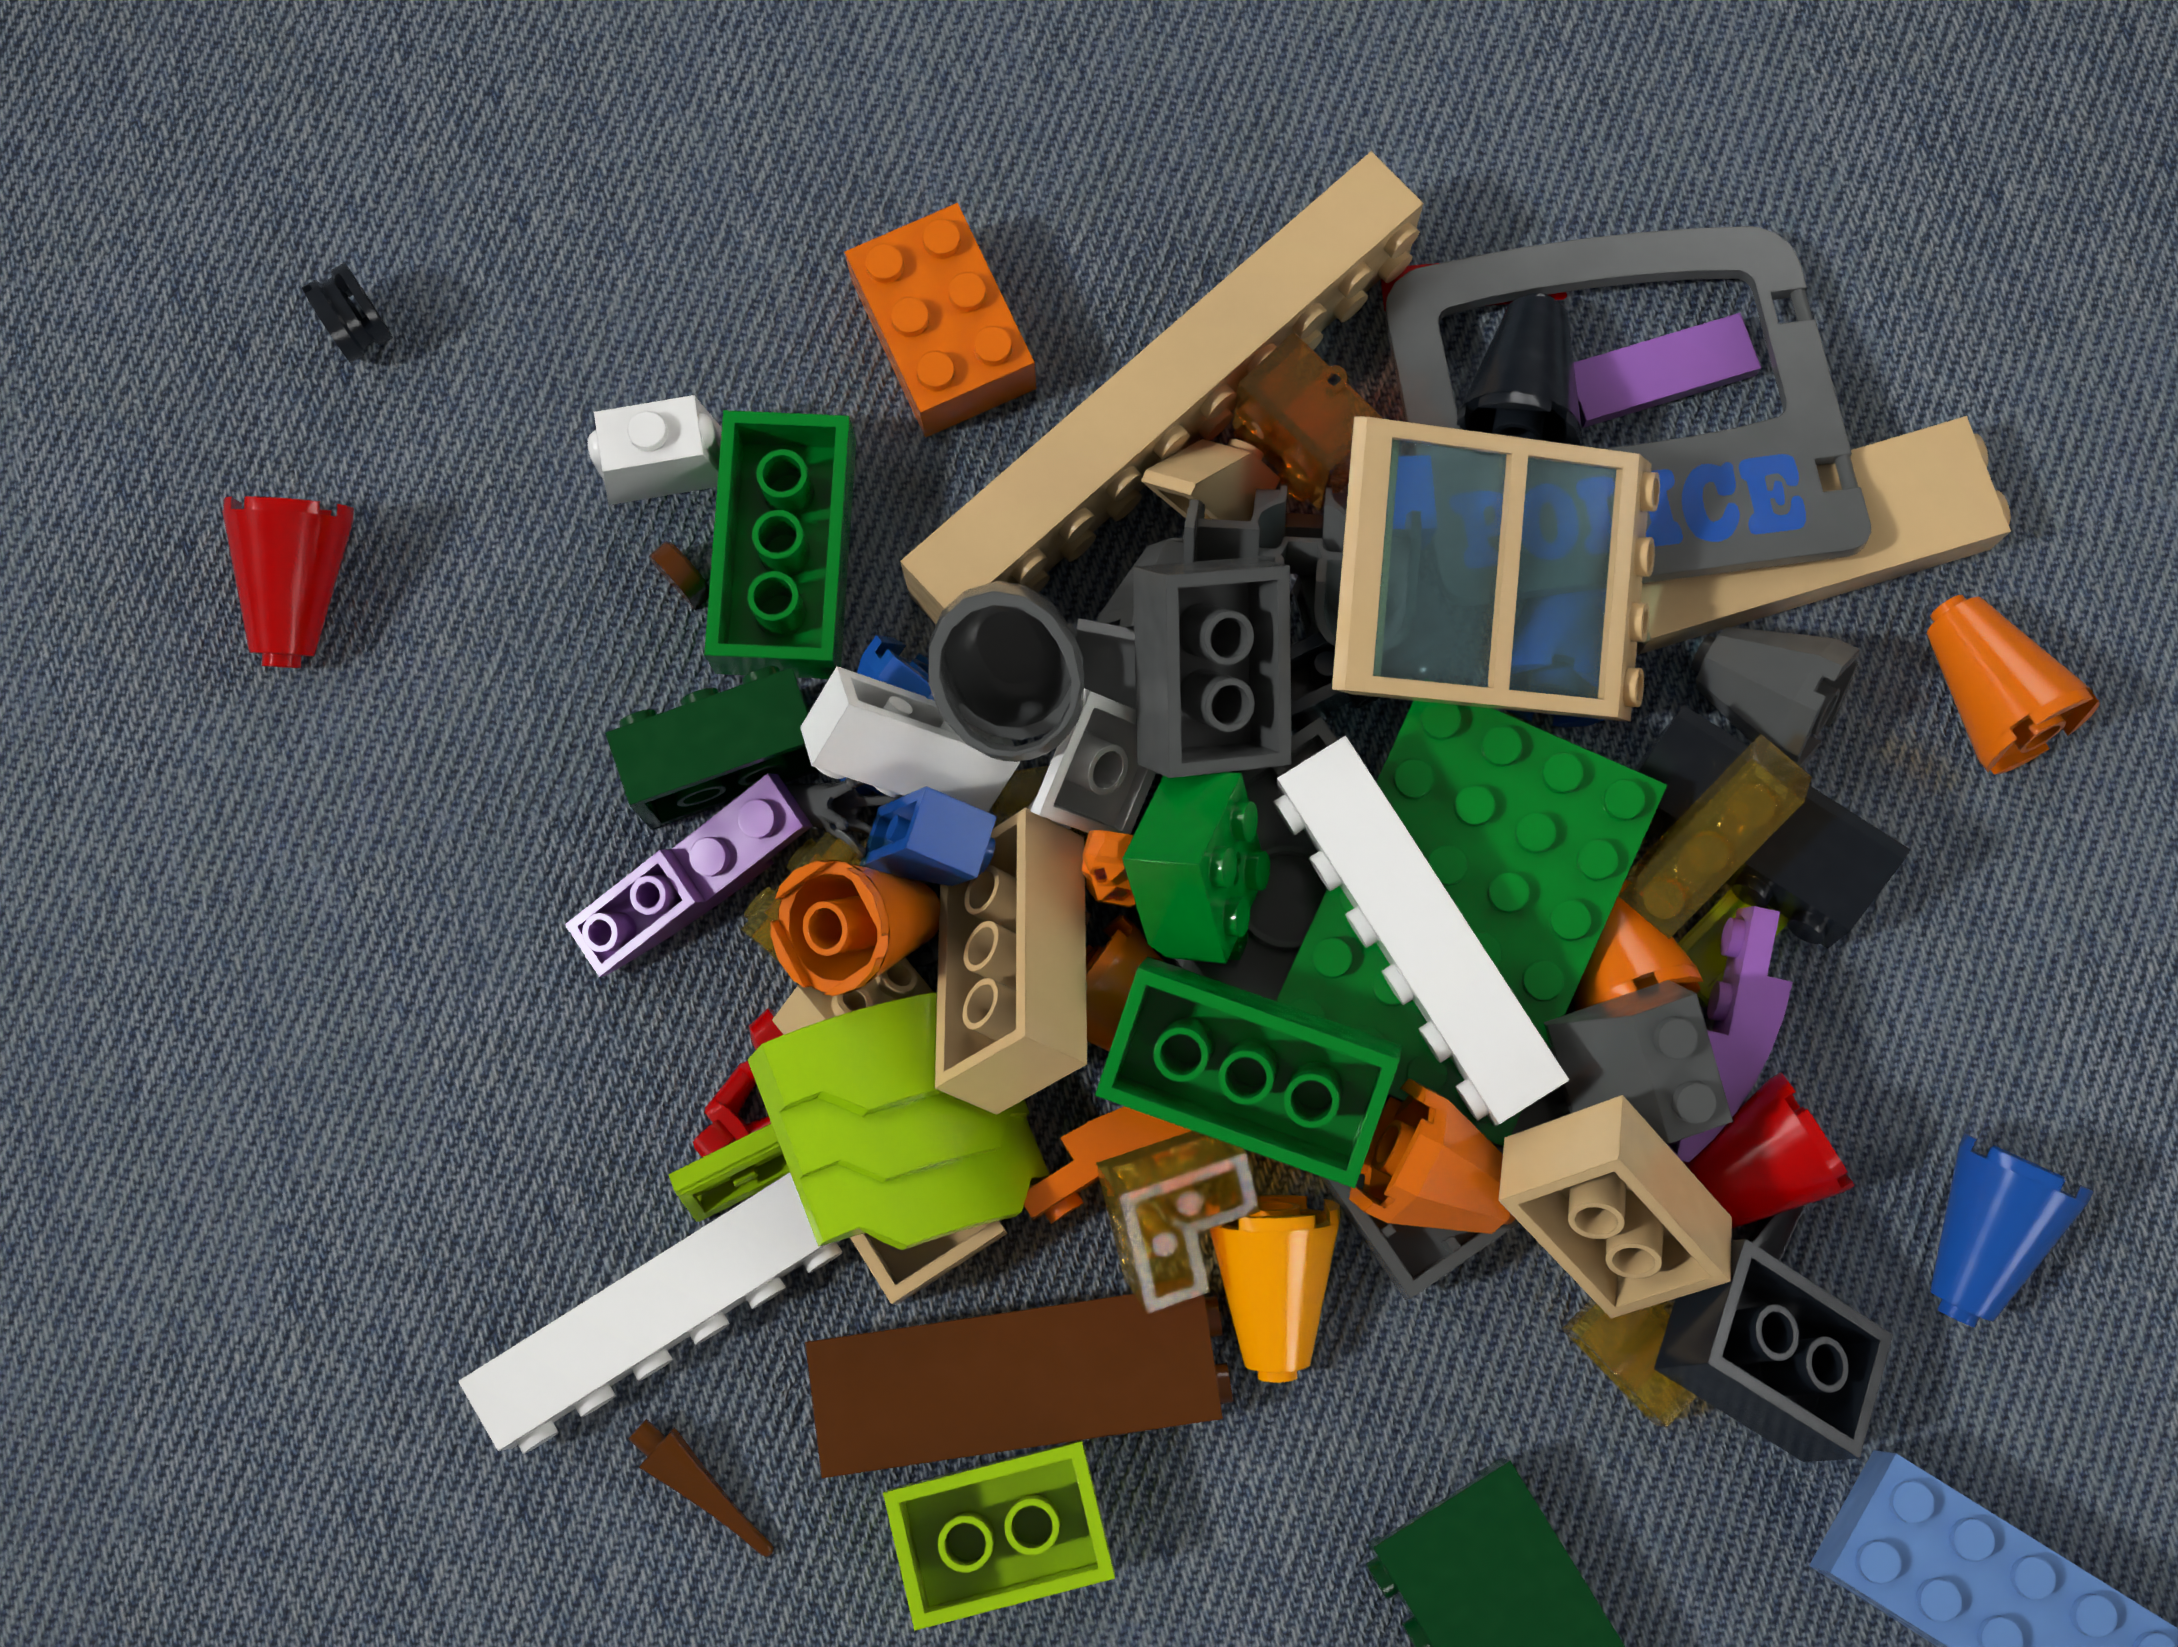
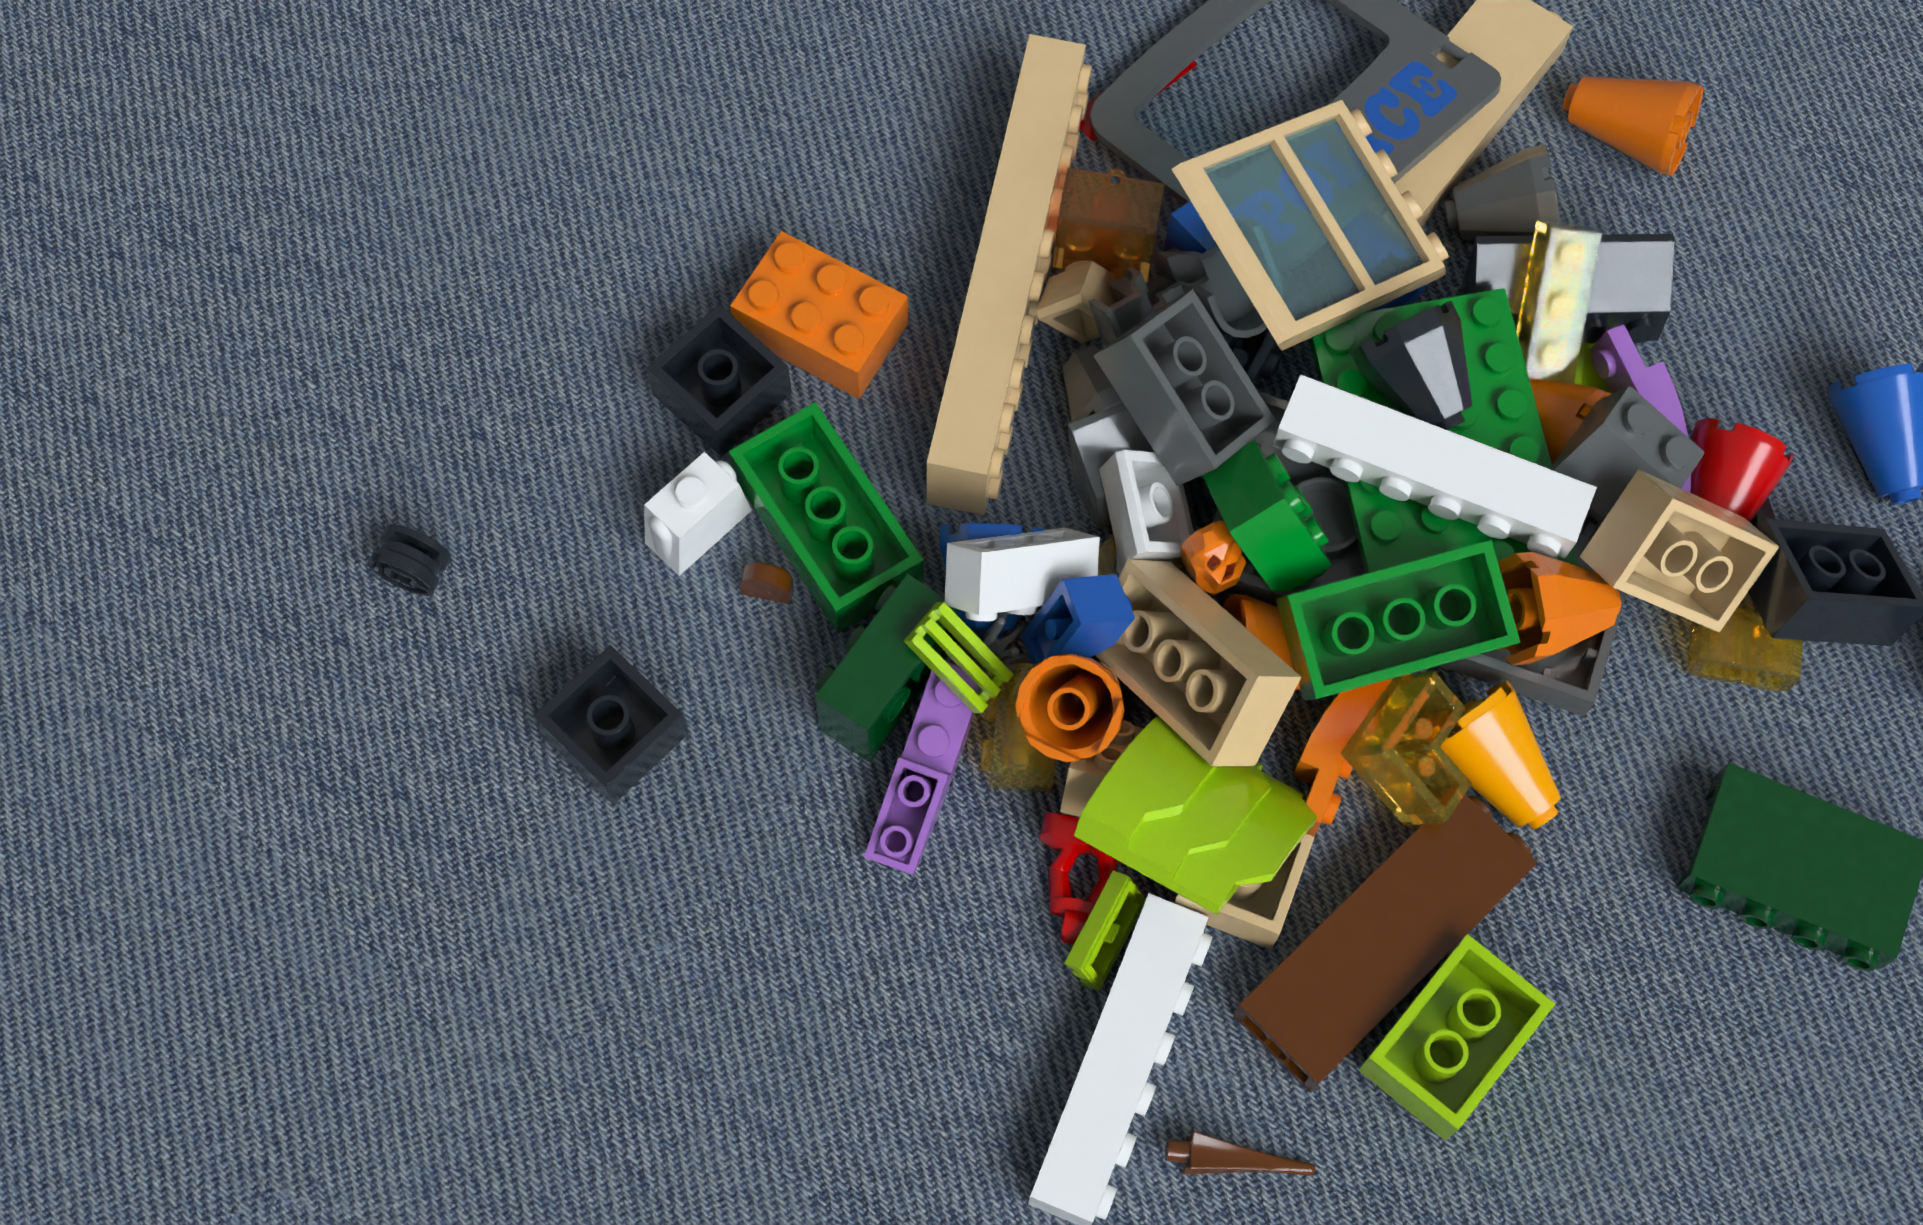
camera: 40 degrees left, 10 degrees down
(285, 571) = (495, 753): red cone -> none
(413, 618) = (611, 724): none -> black brick
(782, 325) = (719, 380): none -> black brick
(792, 842) = (988, 685): none -> lime tile
(1006, 668) = (1055, 474): dark grey piece -> none
(1486, 818) = (1421, 366): none -> black cone
(1527, 377) = (1215, 109): black cone -> none
(1664, 369) = (1289, 69): medium lavender tile -> none

